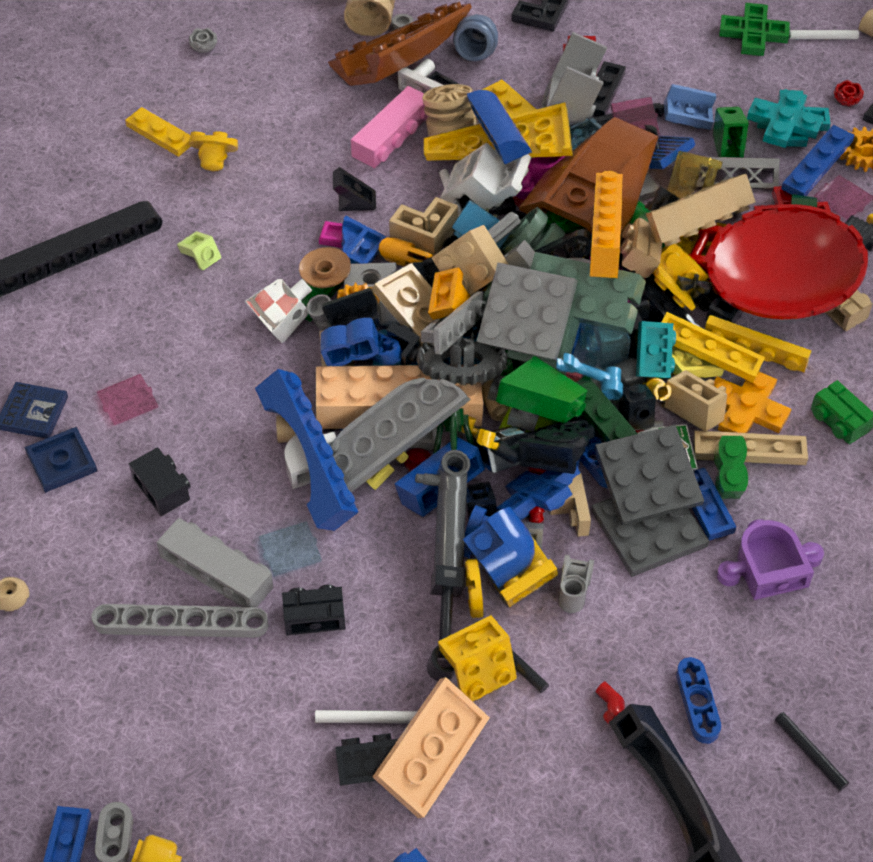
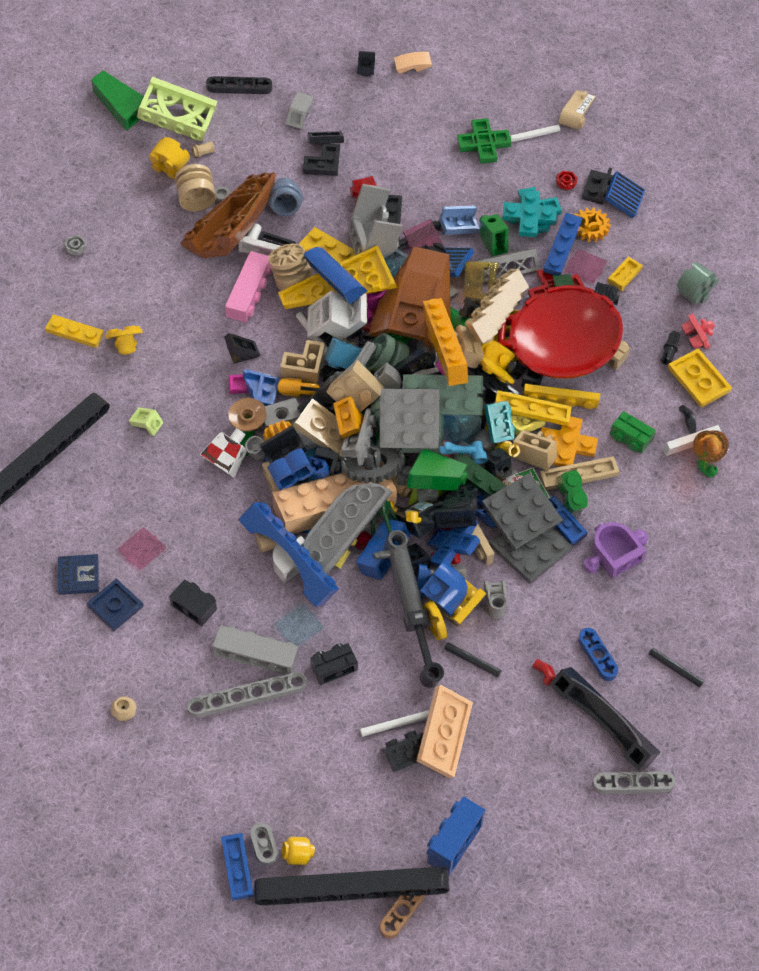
camera: 20 degrees left, 5 degrees up
(480, 657) = (456, 664): yellow bracket -> none
(685, 284) = (513, 363): black piece -> none

